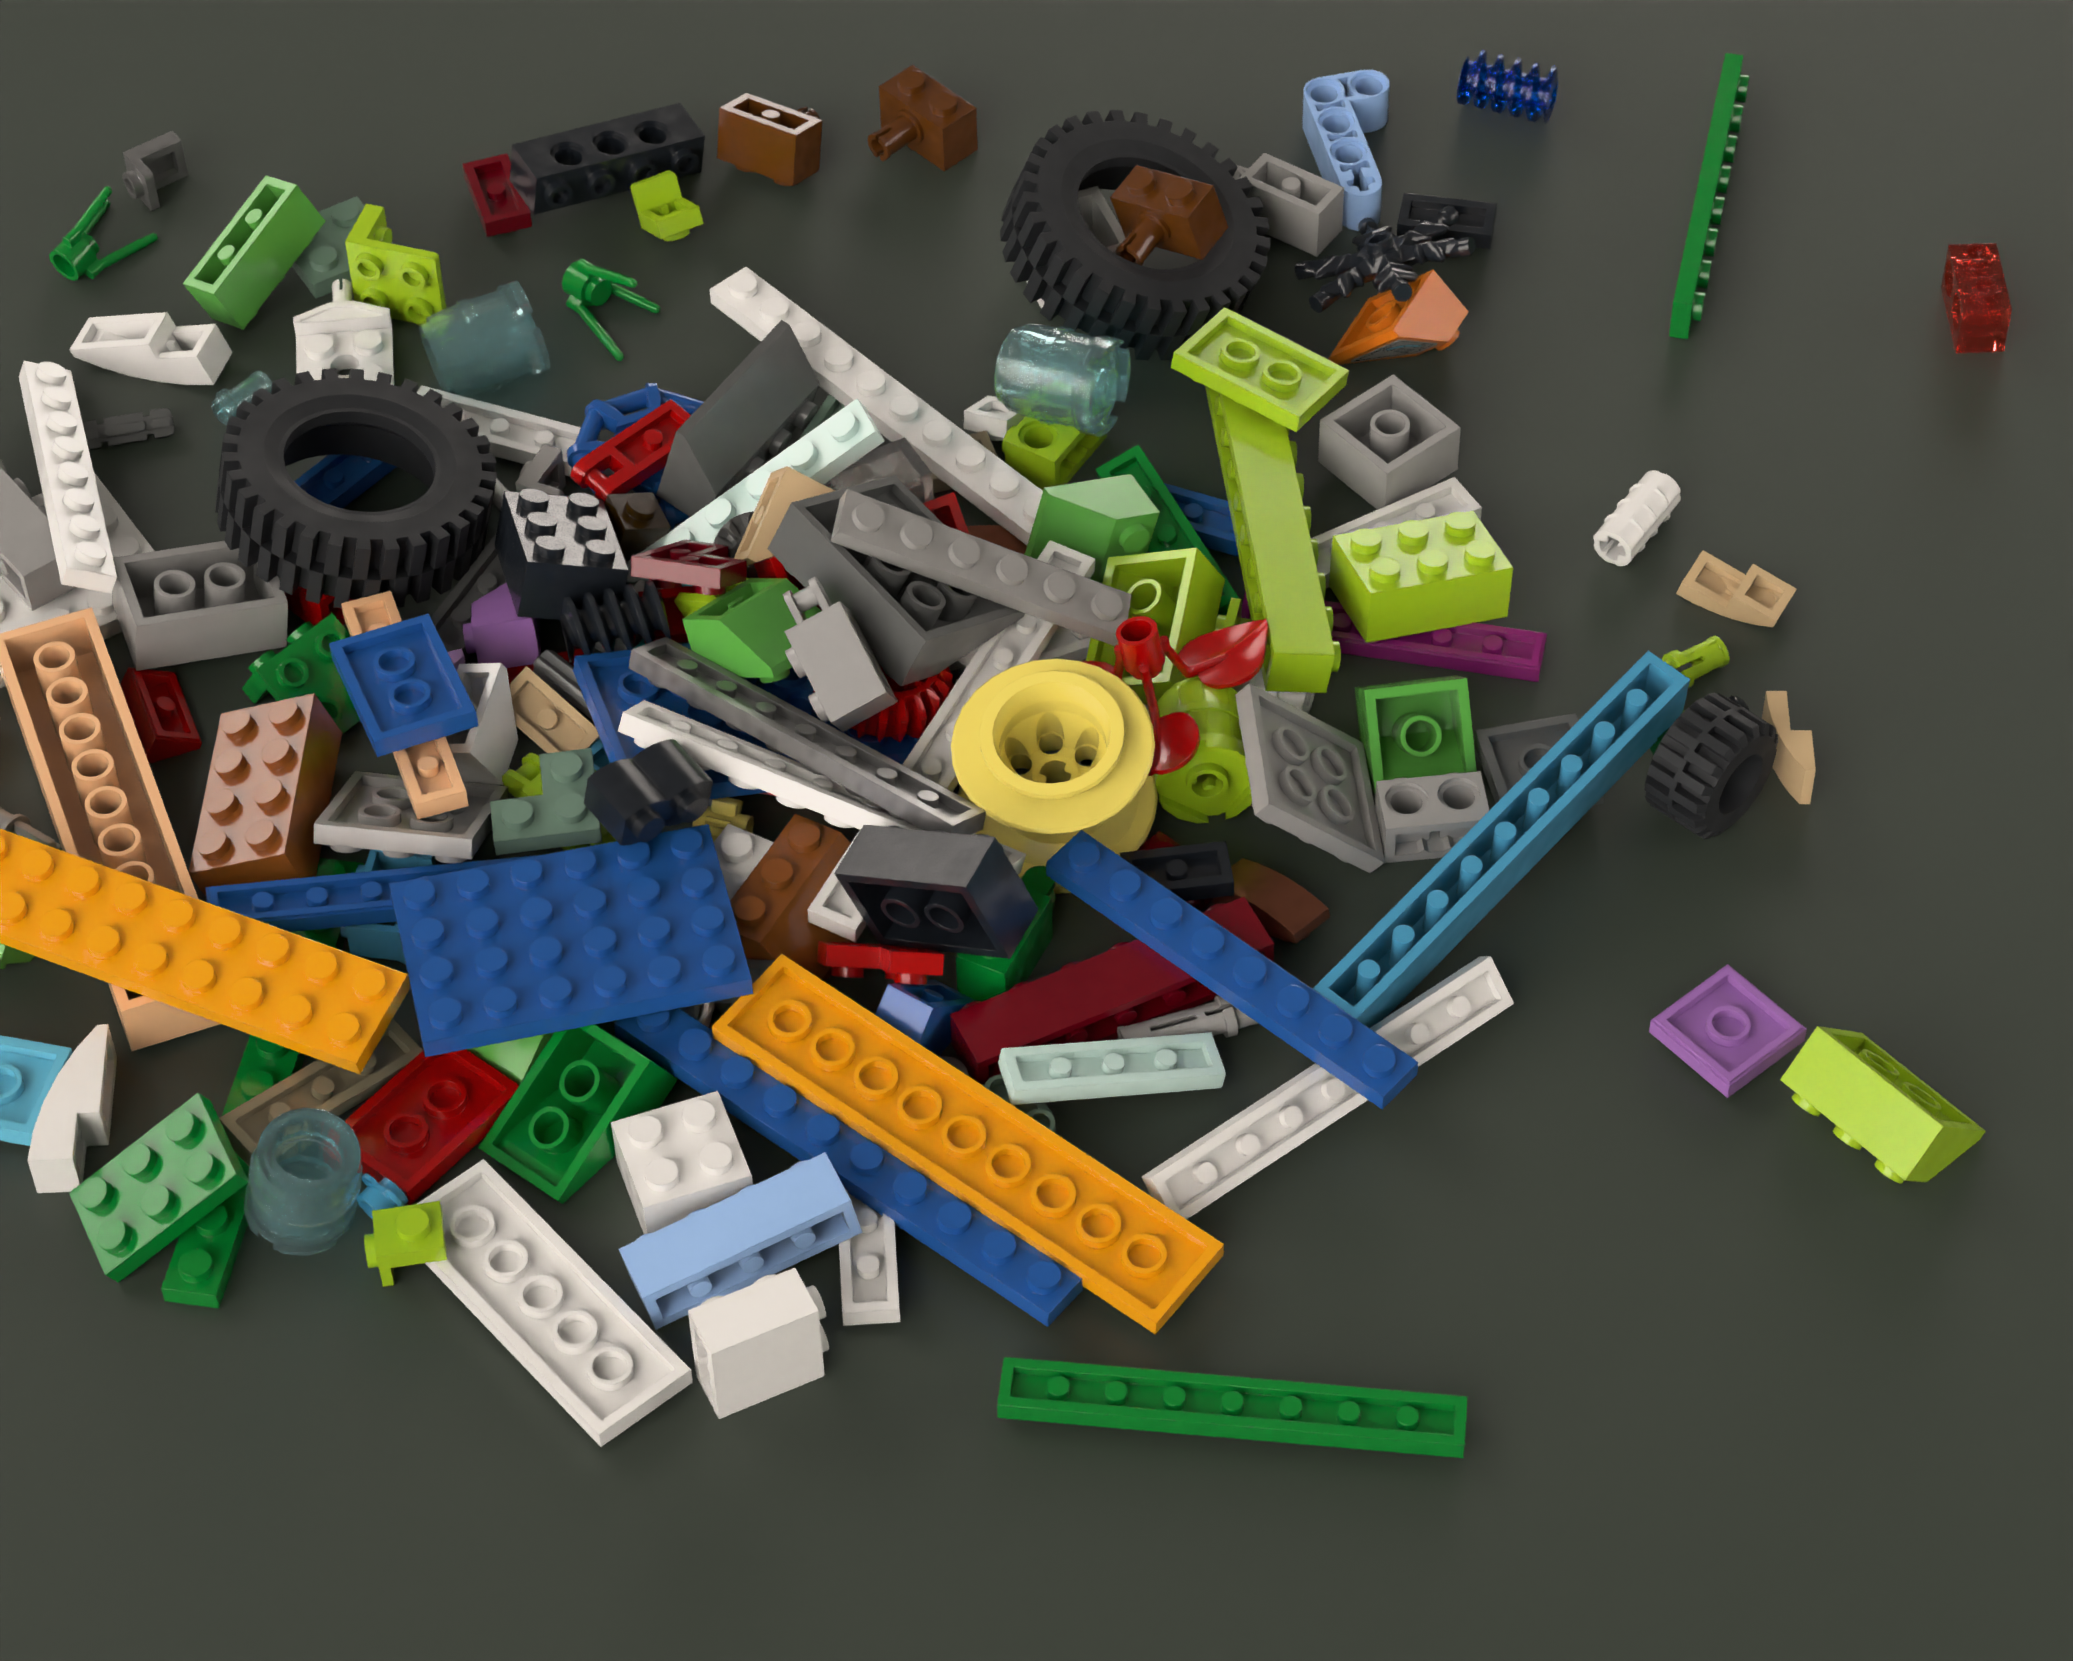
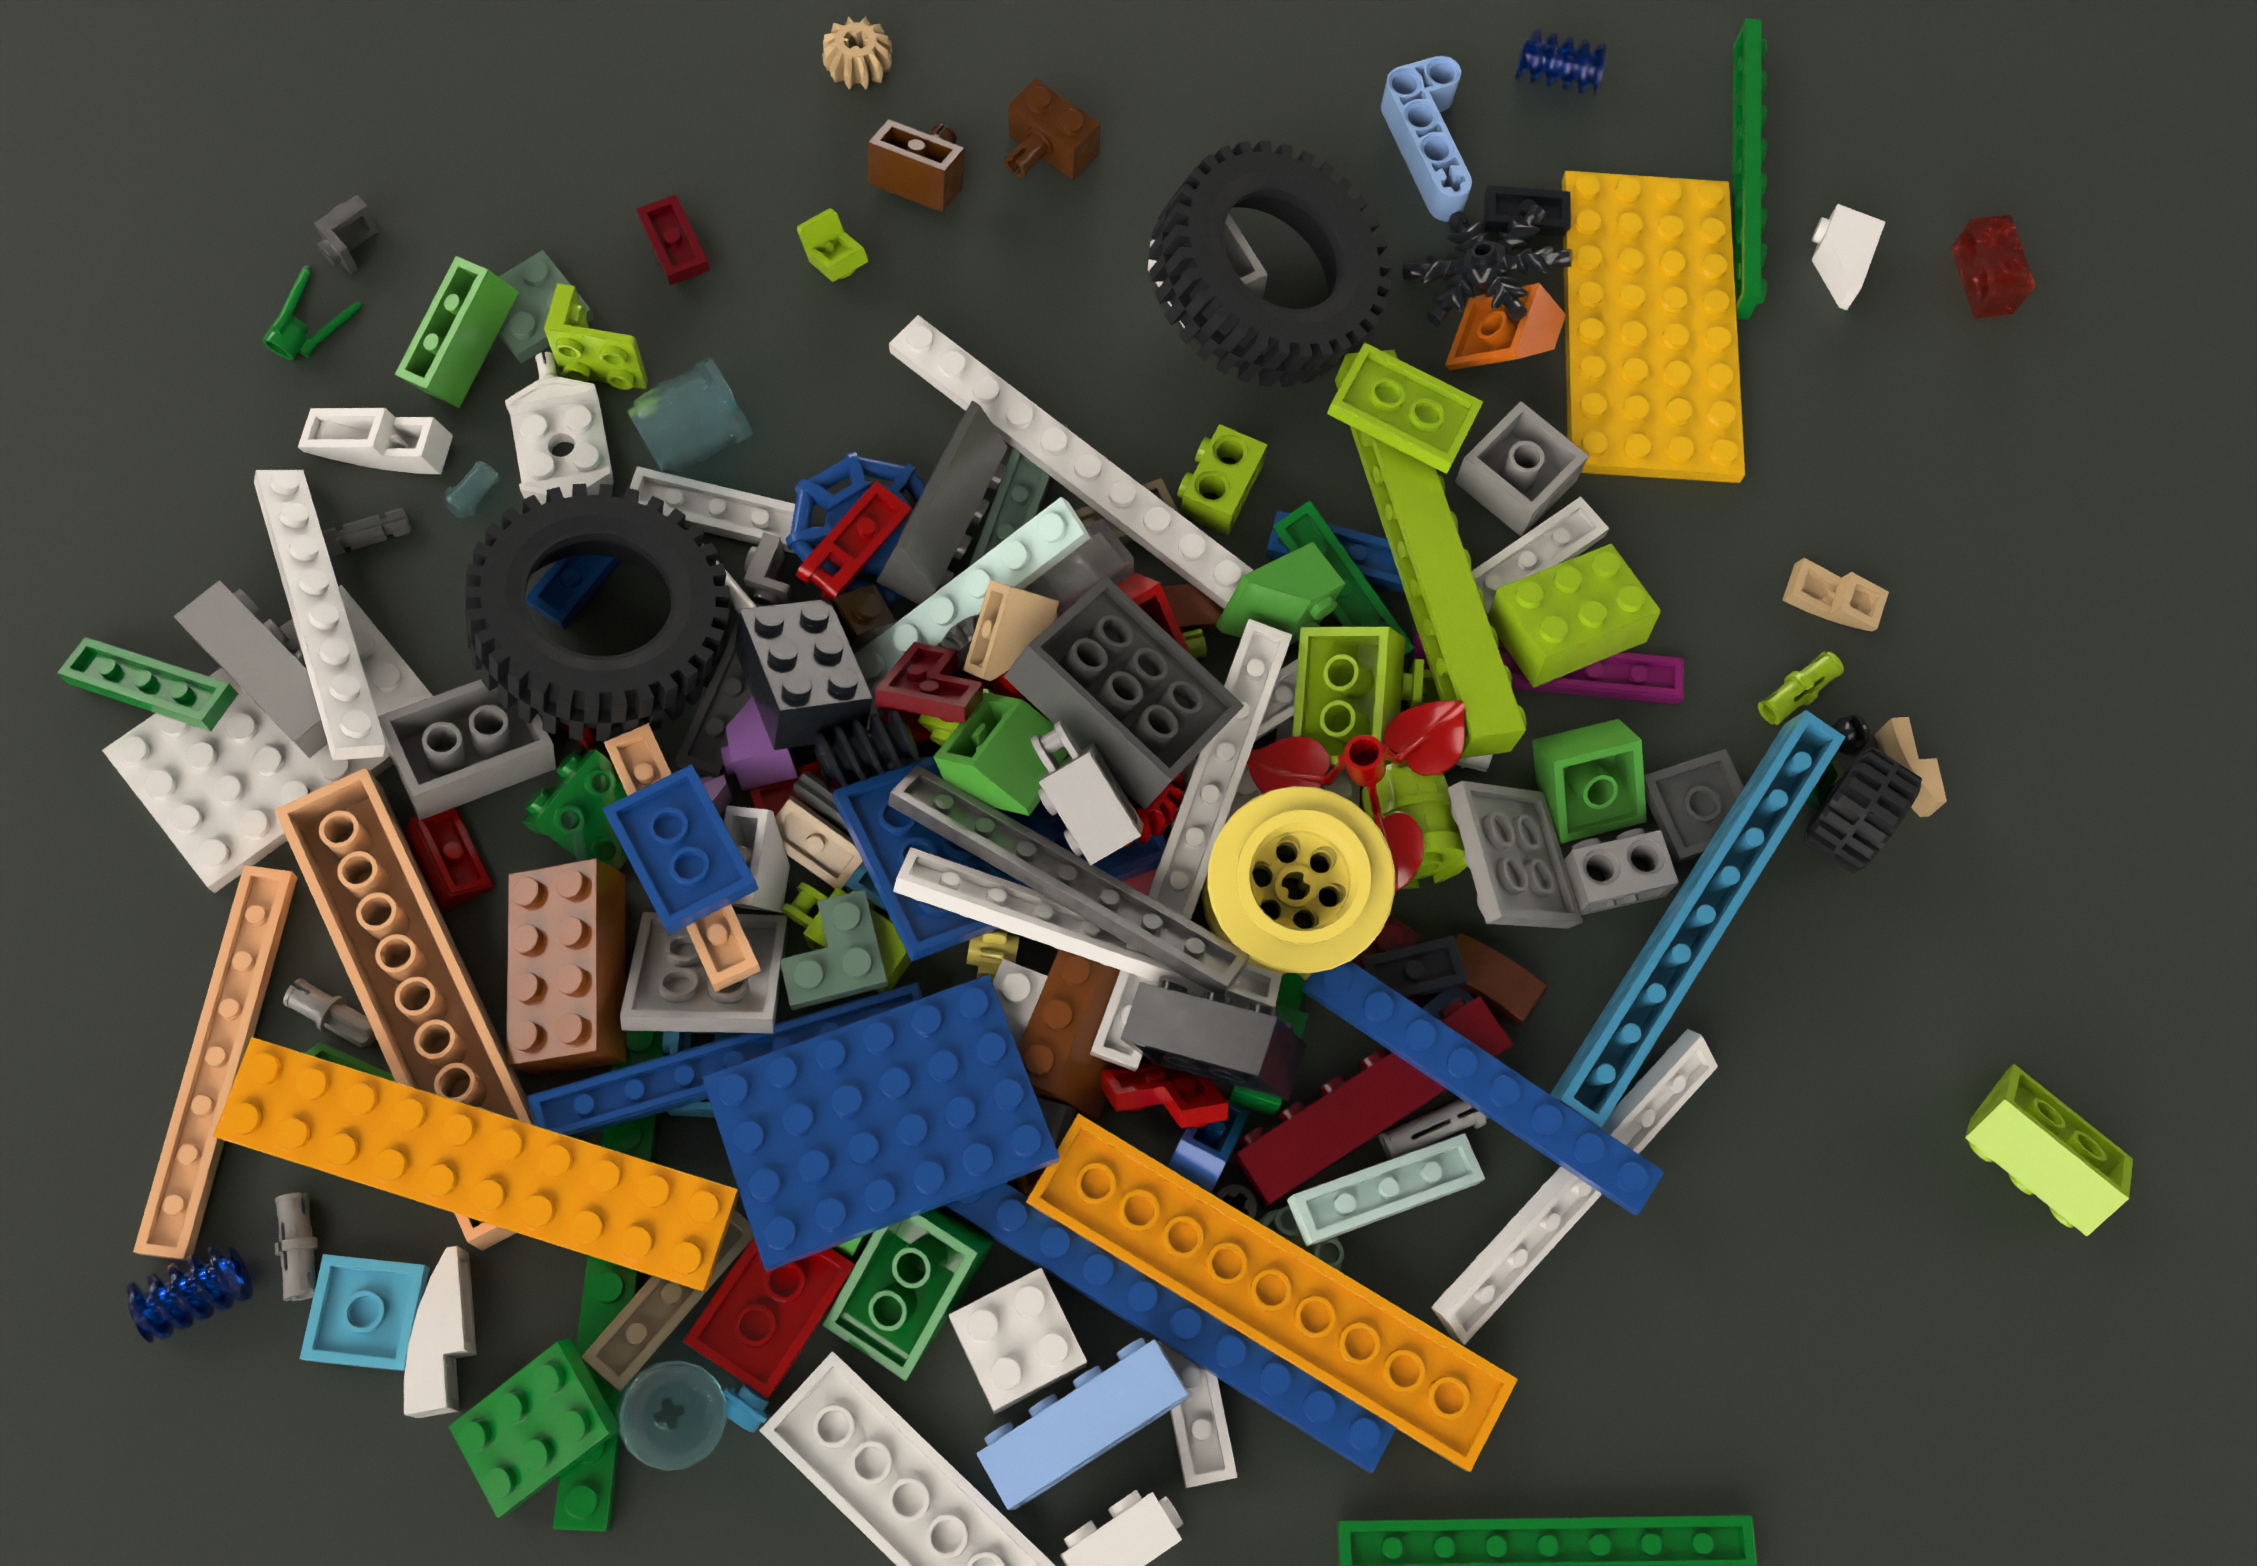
camera: 15 degrees left, 20 degrees up
(405, 1238) = (775, 1455): lime bracket -> none
(593, 286) = (778, 339): green plant -> none
(605, 157) = (769, 197): black brick -> none
(648, 792) = (934, 963): black brick -> none
(726, 41) = (857, 53): none -> tan gear
(979, 567) = (1200, 678): light grey plate -> none
(991, 416) = (1167, 459): white plate -> none
(1063, 377) = (1233, 435): clear light blue piece -> none
(1166, 214) = (1301, 249): reddish brown brick -> none
(1297, 203) = (1402, 206): light grey hinge -> none
(1571, 336) = (1652, 328): none -> yellow plate
(1637, 518) = (1742, 526): white axle -> none
(1727, 1030) = (1905, 1079): medium lavender plate -> none
(1808, 275) = (1845, 251): none -> white slope

